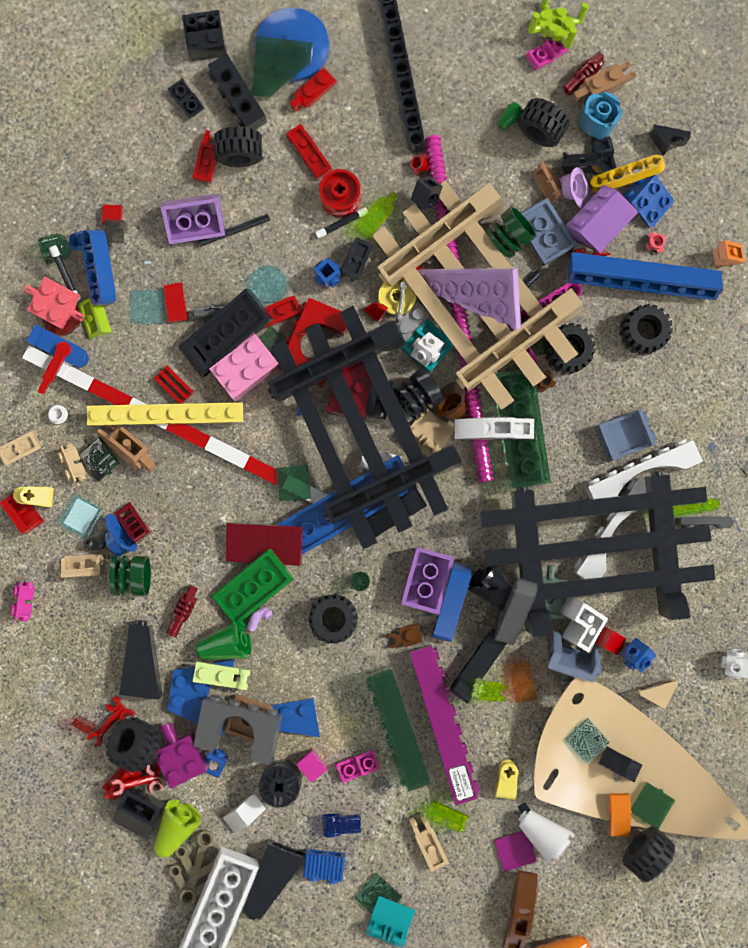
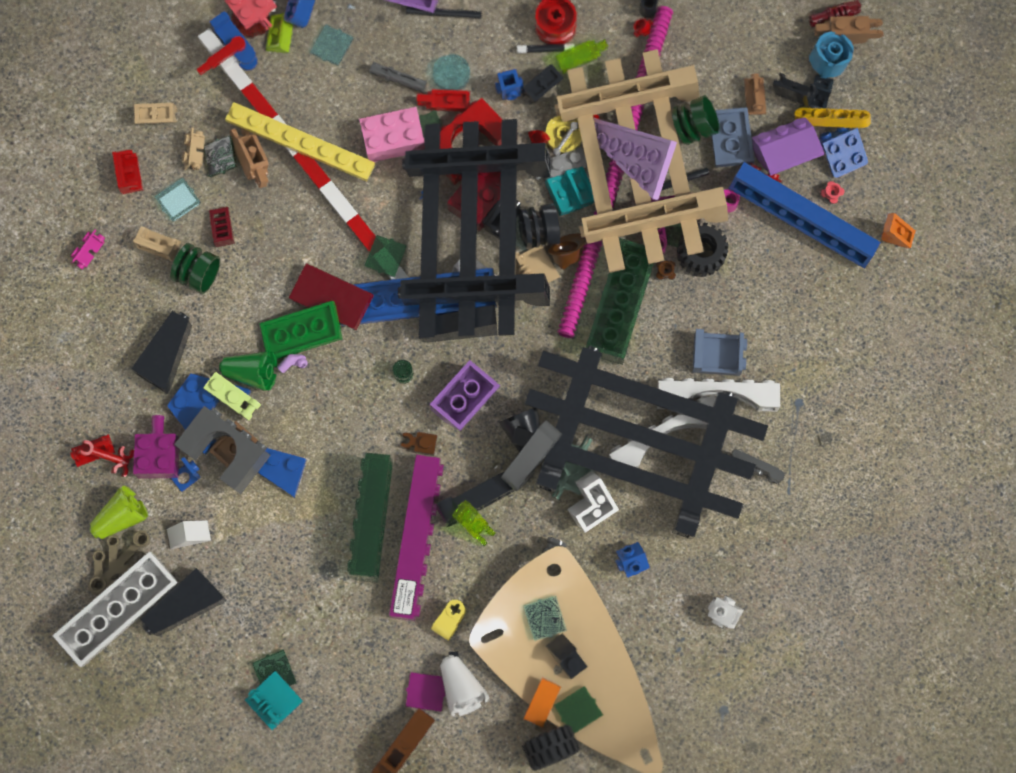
camera: 30 degrees right, 10 degrees down
(35, 496) = (148, 163): light yellow piece -> none
(57, 414) = (203, 101): white plate -> none
(84, 724) = (85, 384): clear red tile -> none
(96, 543) = (182, 230): pearl dark grey arm -> none
(117, 538) = (200, 231): blue piece -> none
(119, 711) = (122, 388): red bar -> none
(133, 744) = (120, 417): black tyre -> none
(138, 811) = (91, 484): black slope -> none
(162, 373) = (316, 108): red tile -> none
(175, 302) = (359, 52): red tile -> none
(182, 610) = (226, 323): dark red hinge -> none
(225, 332) = (390, 93): black hinge -> none
(280, 772) = (246, 523): black wheel -> none
(312, 765) = (273, 517): dark pink panel -> none
(321, 631) = (364, 408): black tyre -> none
(324, 865) = (238, 616): blue brick -> none
(335, 825) = (270, 585): clear blue piece -> none
(357, 766) = (315, 540): dark pink slope -> none
(426, 193) = (634, 52): black brick -> none
(427, 349) = (567, 189): white brick -> none
(429, 844) = (347, 644): tan hinge -> none
(440, 812) = (380, 627): clear neon green hinge -> none
(452, 602) = (479, 426): blue beam -> none
(494, 428) = (594, 284): white slope -> none
(510, 115) = (747, 21): green cone -> none
(522, 682) = (510, 536): clear orange slope -> none
(543, 122) = (773, 38): black tyre -> none
(573, 661) = (565, 533): sand blue panel -> none
(576, 187) = (778, 108): lavender piece -> none
(610, 640) = (611, 534): red slope -> none
(658, 321) = (789, 250): black tyre -> none
(658, 693) = (634, 605): tan slope -> none
(663, 136) = (885, 99): black slope -> none
(696, 508) = (751, 447): clear neon green hinge -> none

